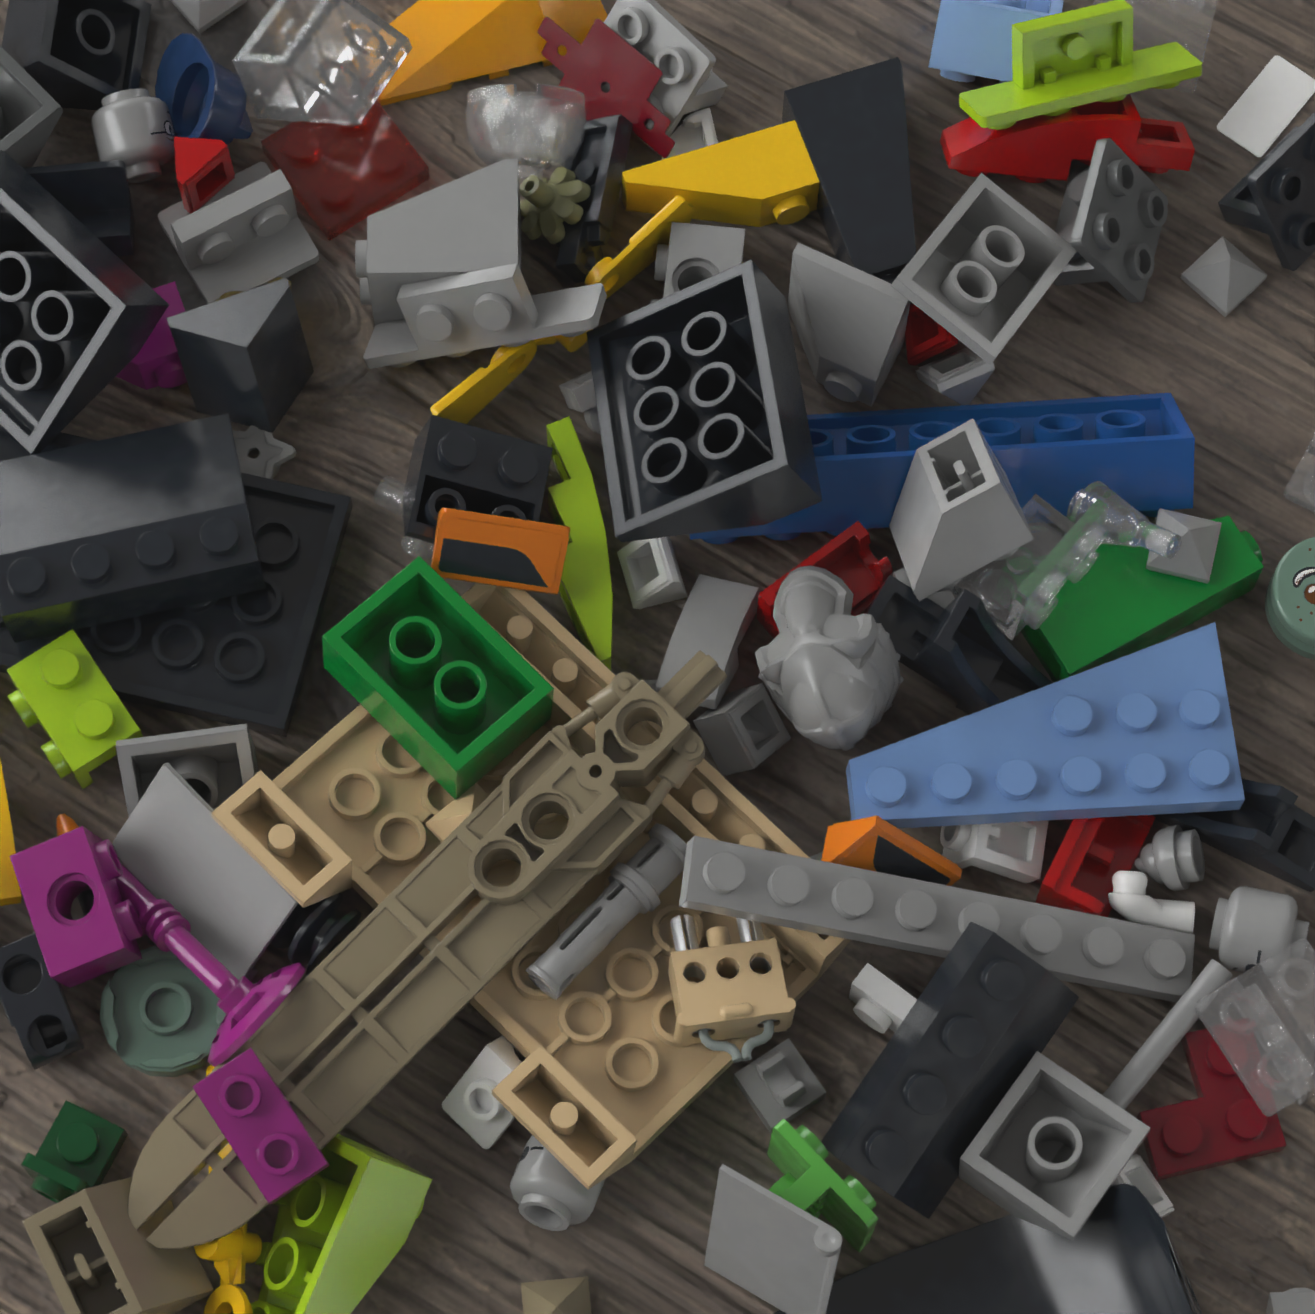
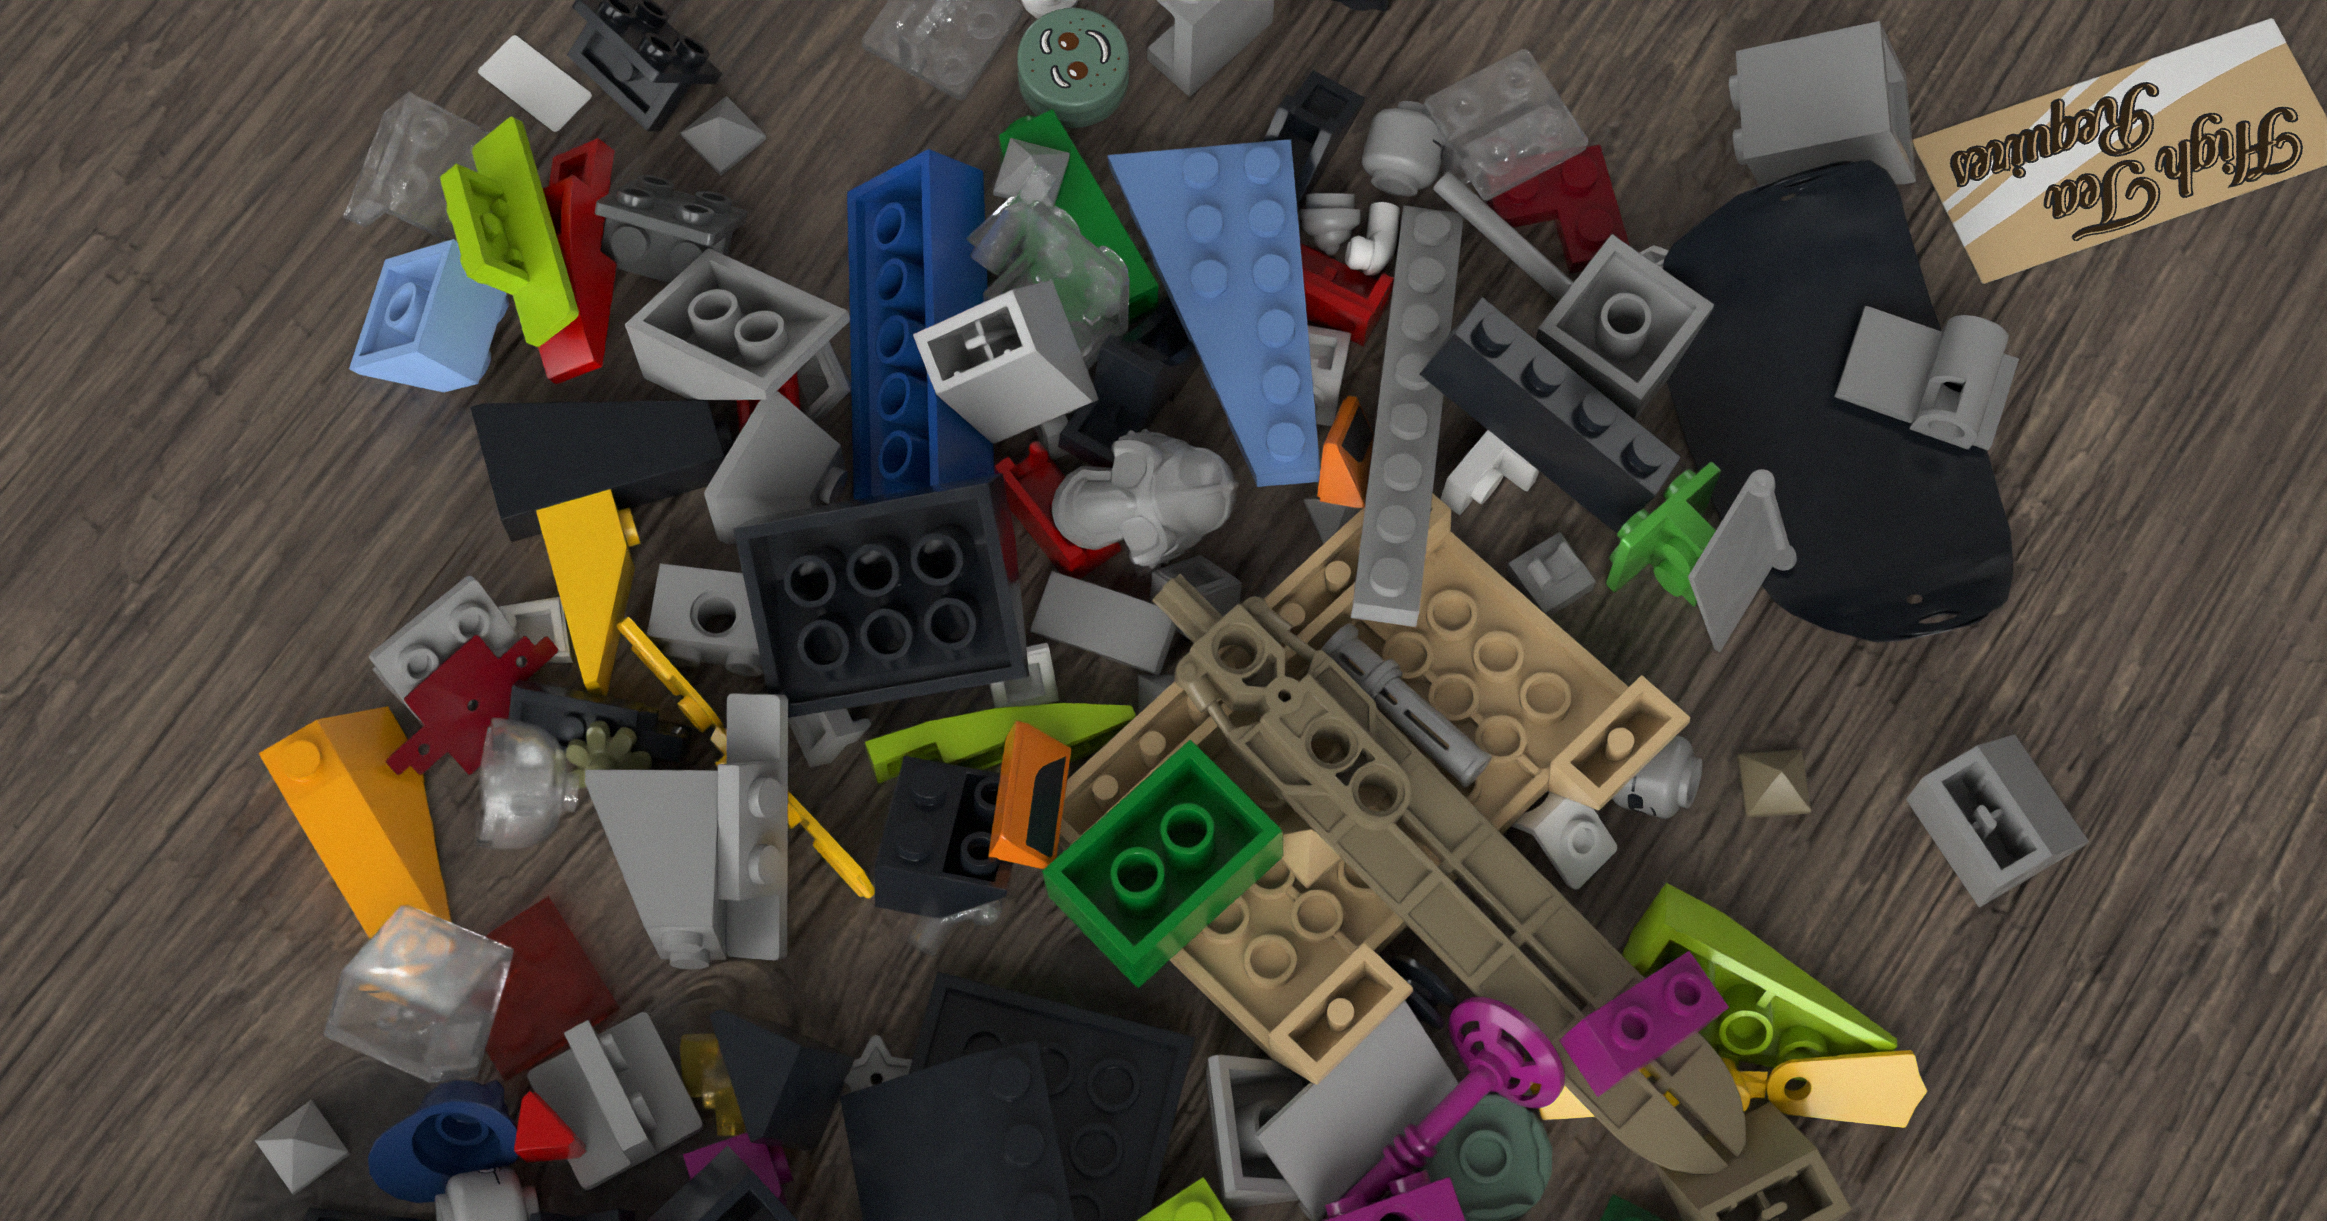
camera: 90 degrees left, 0 degrees up
(726, 1007) = (1494, 608): tan piece -> none

